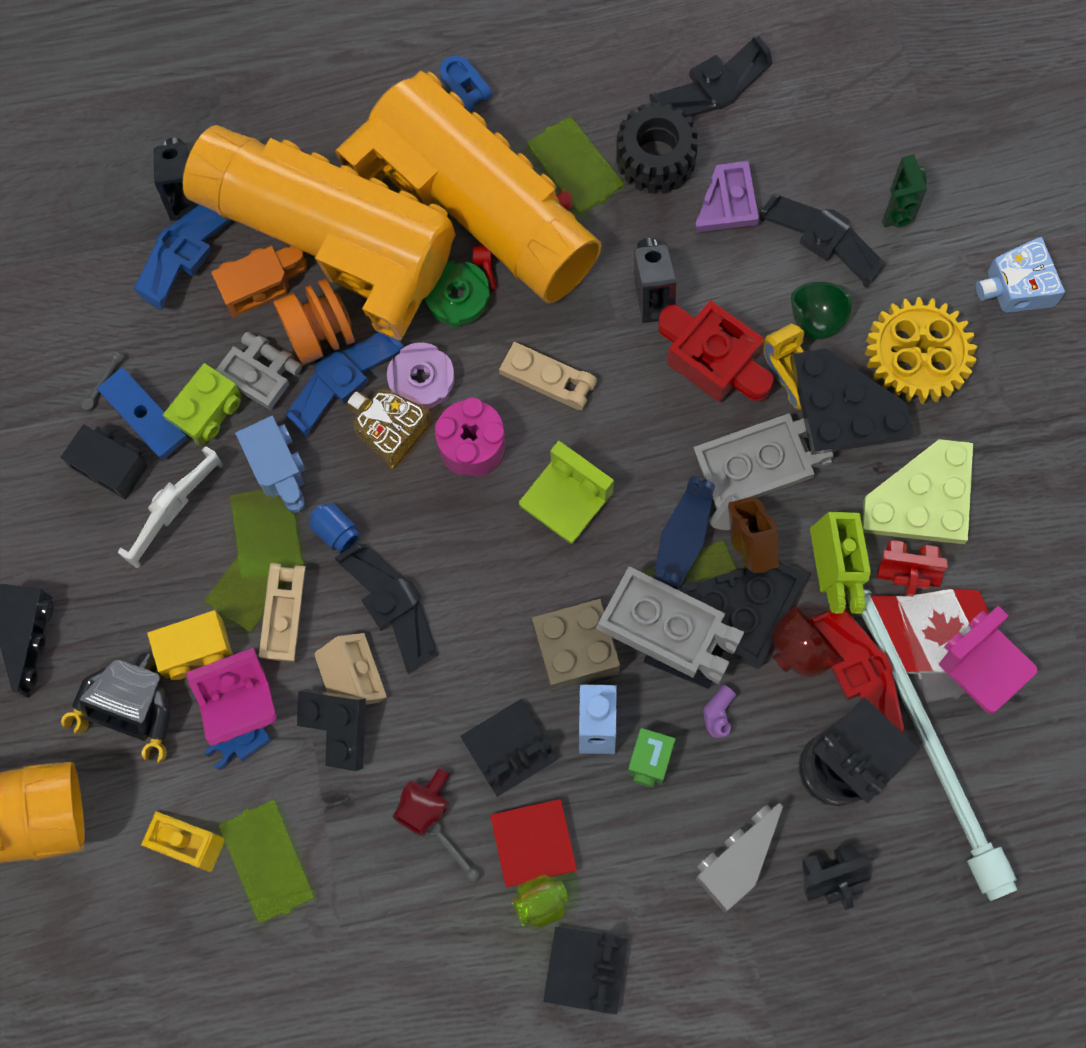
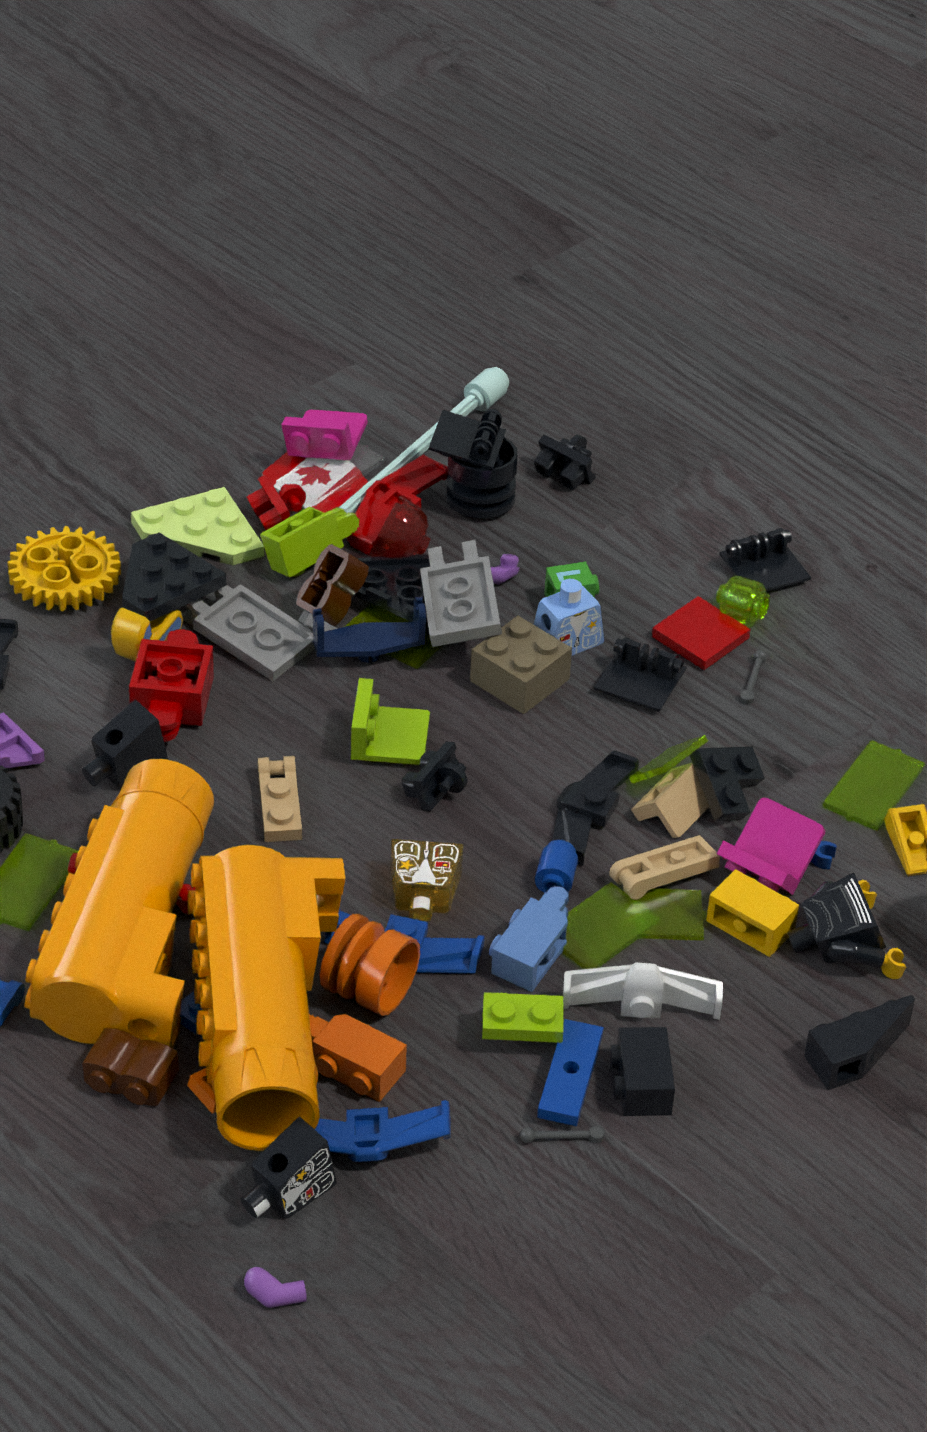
camera: 130 degrees left, 30 degrees down
(108, 130) = (270, 1291): none -> medium lavender arm
(252, 377) = (461, 1006): light grey plate -> none
(329, 133) = (130, 1067): none -> reddish brown brick
(386, 690) = (668, 759): none -> clear neon green piece
(422, 805) = (736, 703): dark red piece -> none
(433, 362) = (375, 885): lavender plate -> none
(472, 420) = (390, 807): dark pink brick -> none
(486, 502) = (438, 775): none -> black hips
(738, 868) = (599, 510): light grey slope -> none
(820, 308) = (68, 641): dark green helmet -> none

